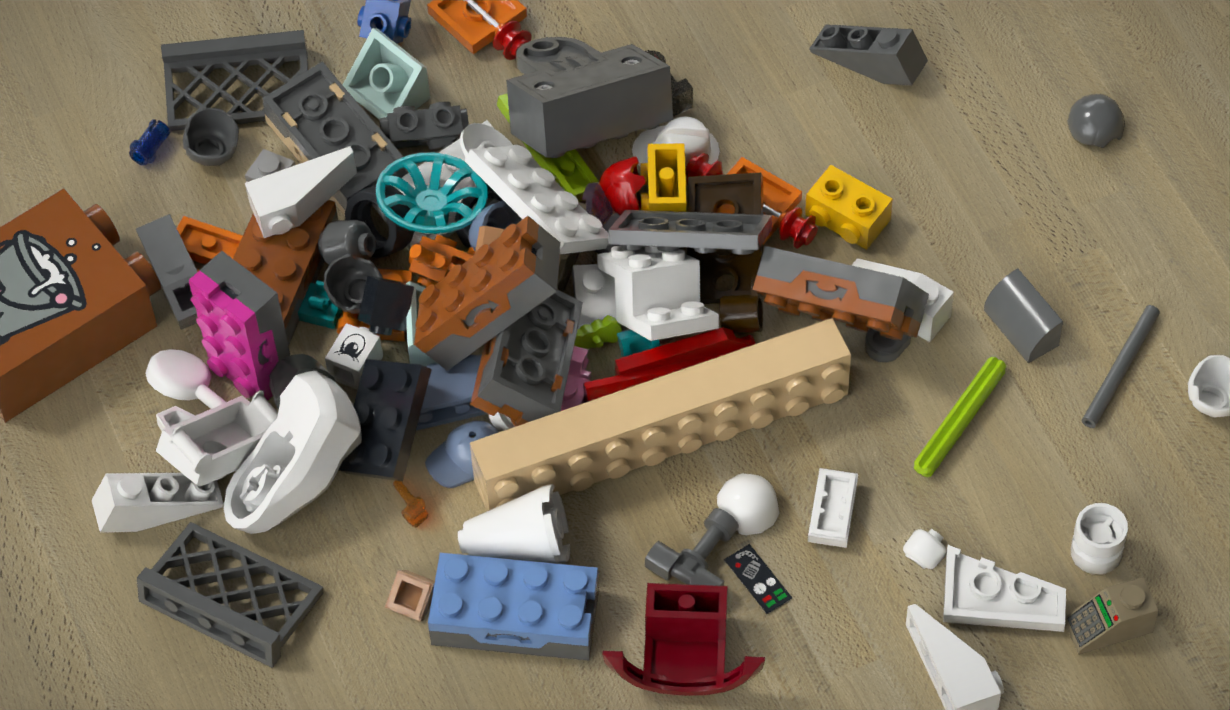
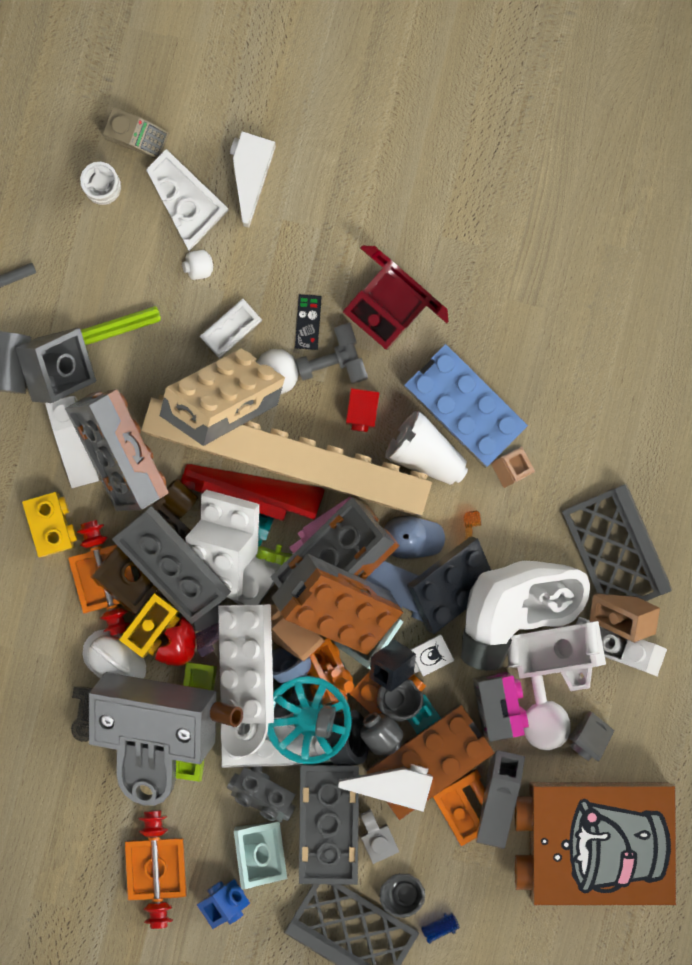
camera: 145 degrees left, 30 degrees up
(119, 379) = (591, 737): none -> dark grey slope
(168, 523) = (625, 616): none -> medium nougat slope
(411, 189) = (325, 721): none -> dark grey tile
(518, 137) = (226, 714): none -> reddish brown hinge
(624, 528) = (362, 410): none -> red brick
(778, 402) = (221, 396): none -> tan piece
(976, 338) = (55, 365): none -> dark grey slope

